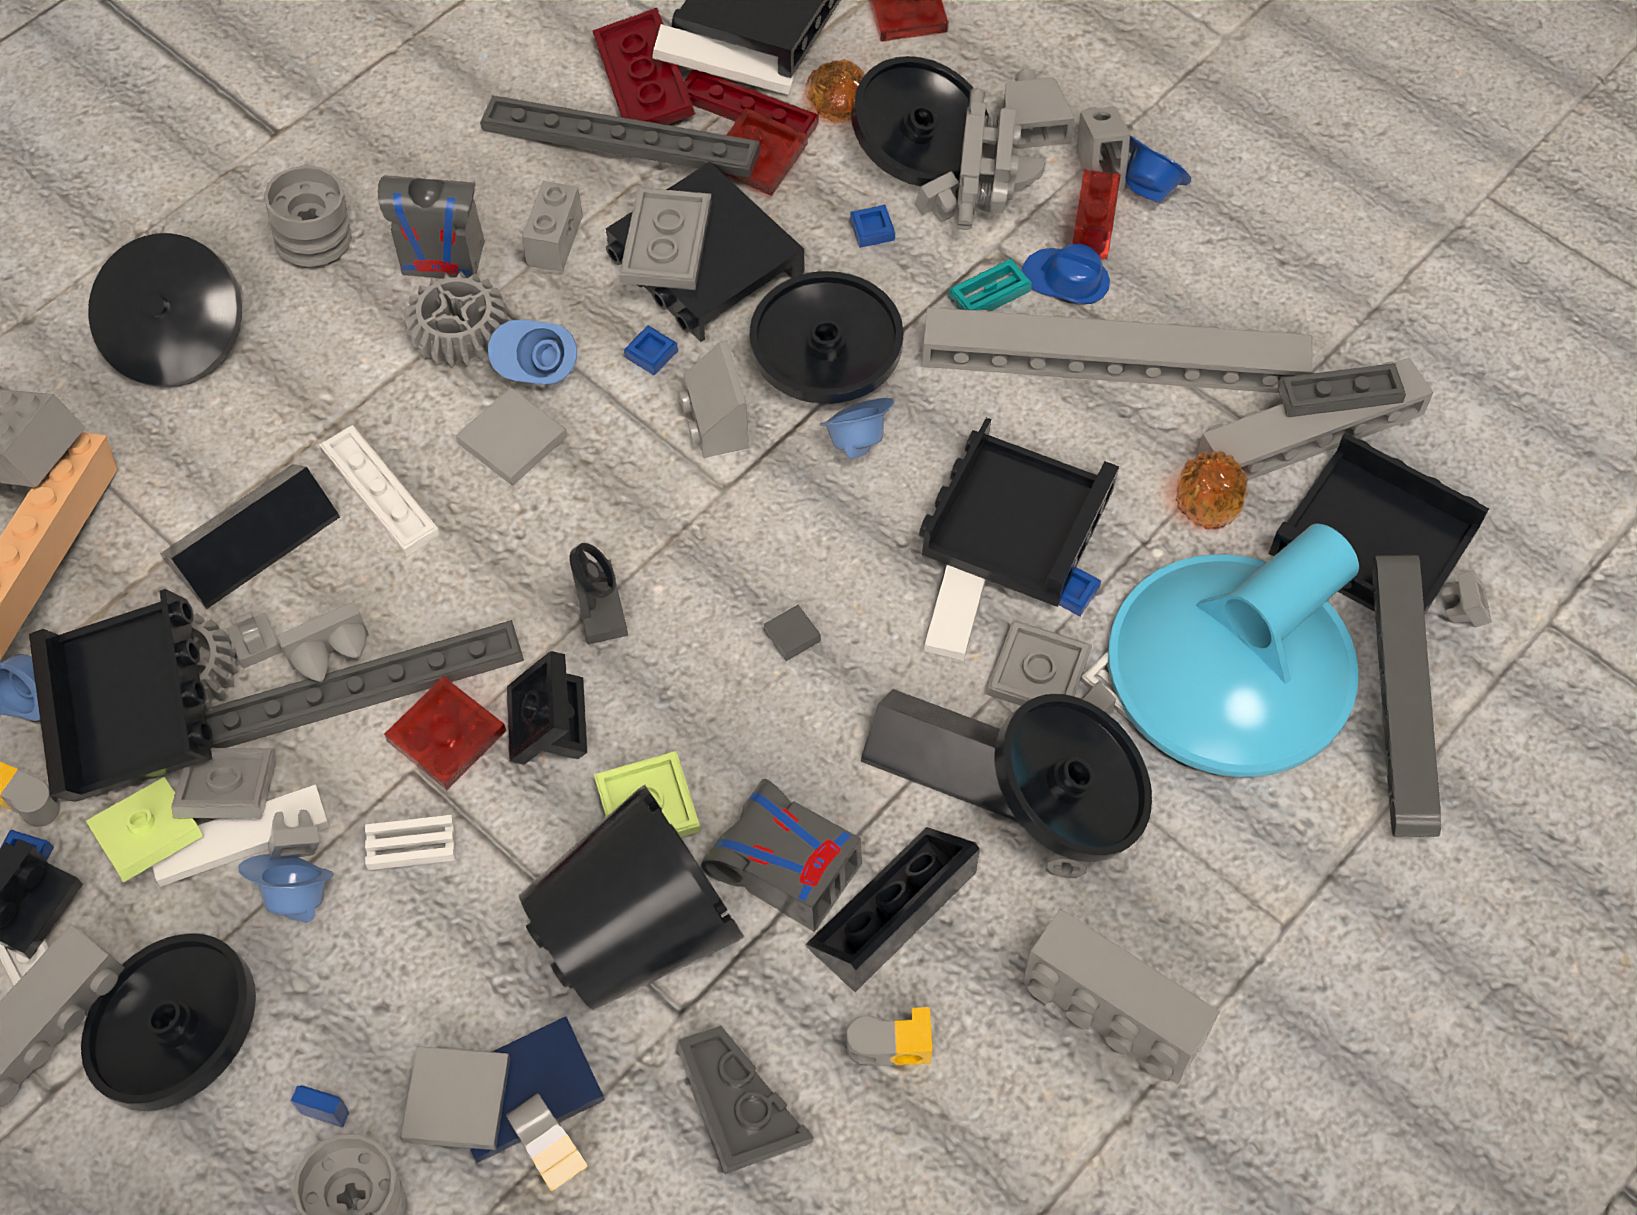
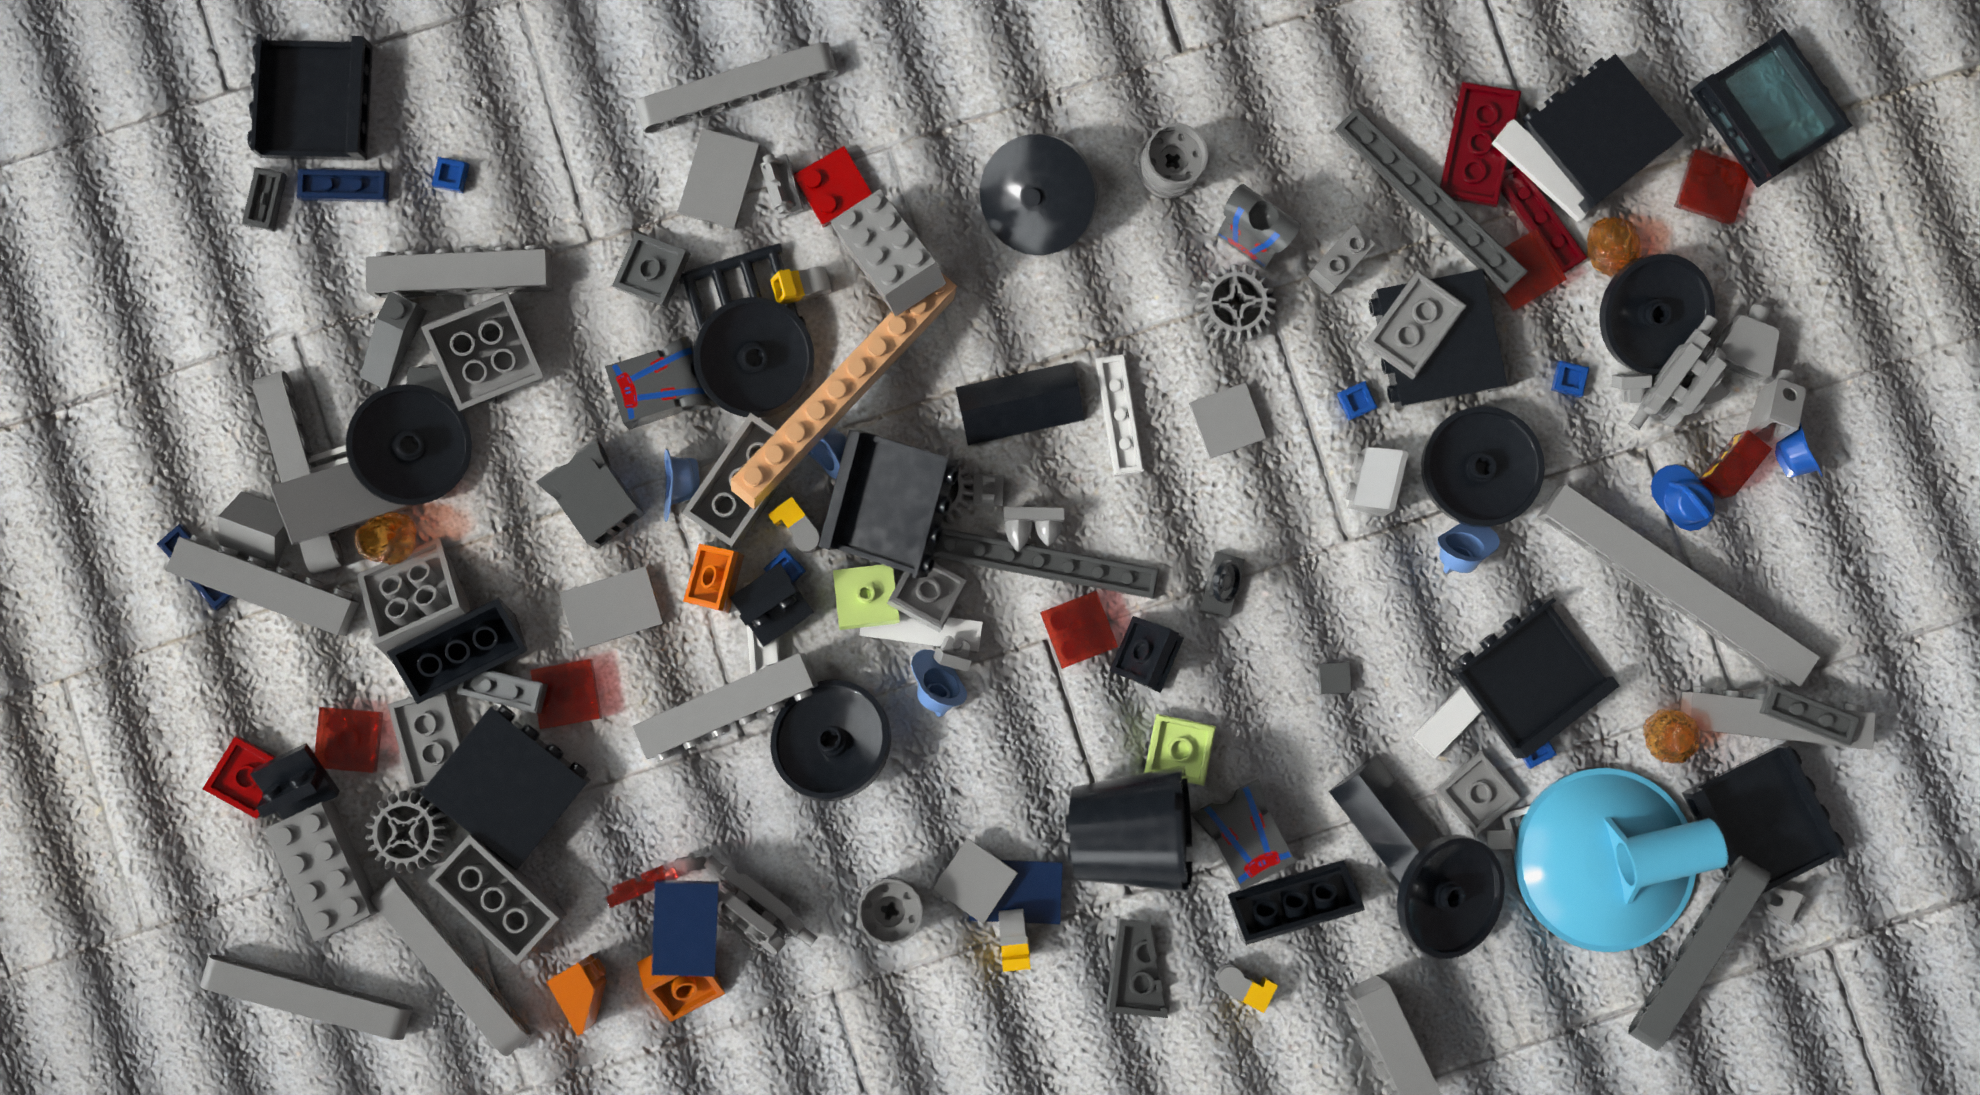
camera: 30 degrees right, 25 degrees up
(320, 1105) = (895, 839): blue tile -> none
(409, 827) = (999, 683): white tile -> none
(532, 351) = (1274, 369): medium blue piece -> none
(994, 293) = (1596, 482): teal tile -> none

